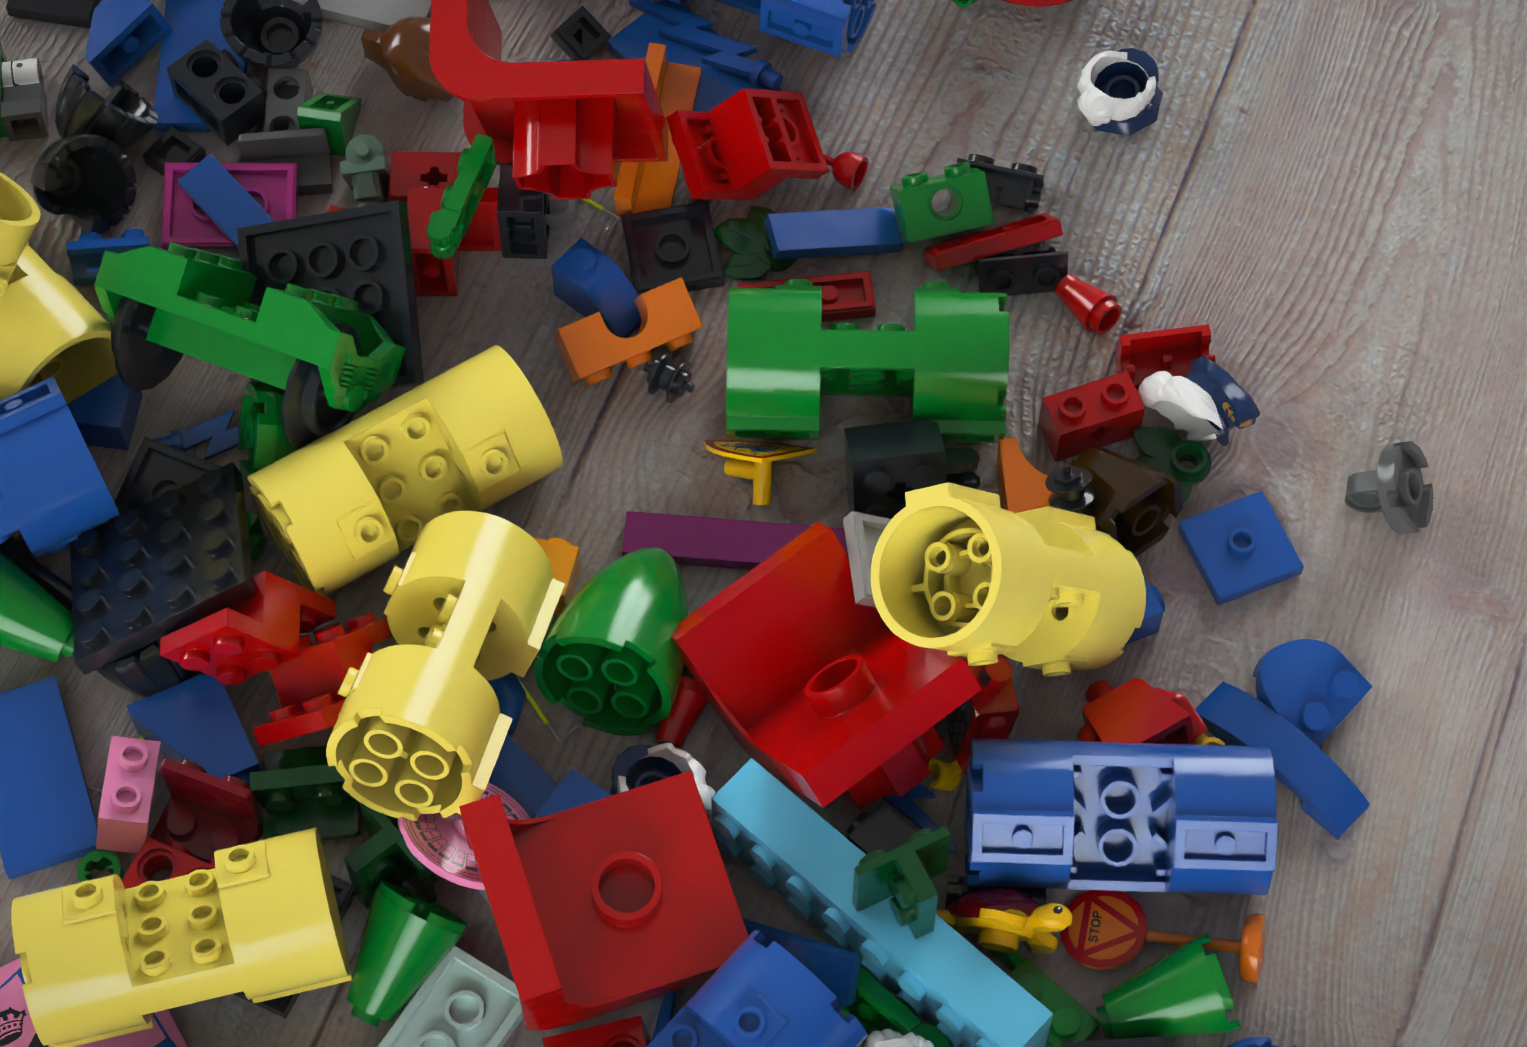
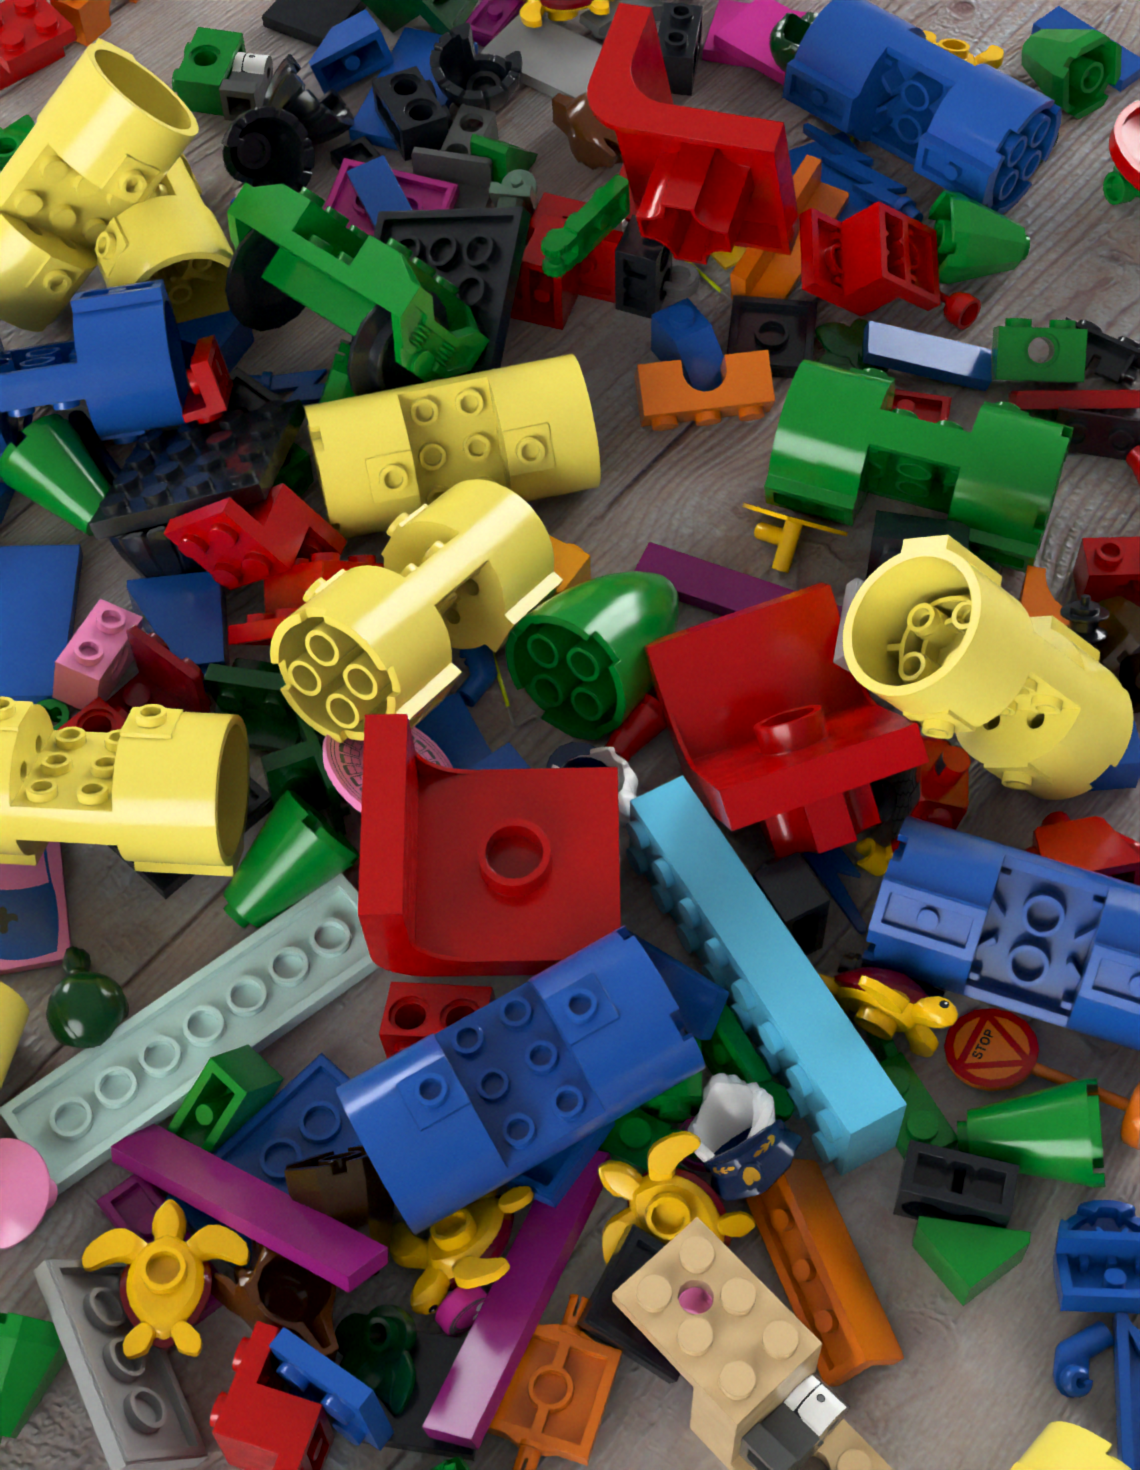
camera: 20 degrees right, 5 degrees down
(132, 475) = (208, 382): none -> red bracket
(668, 377) = (729, 439): black wheel -> none
(841, 90) = (974, 239): none -> green cone
(905, 876) = (792, 919): dark green bracket -> none

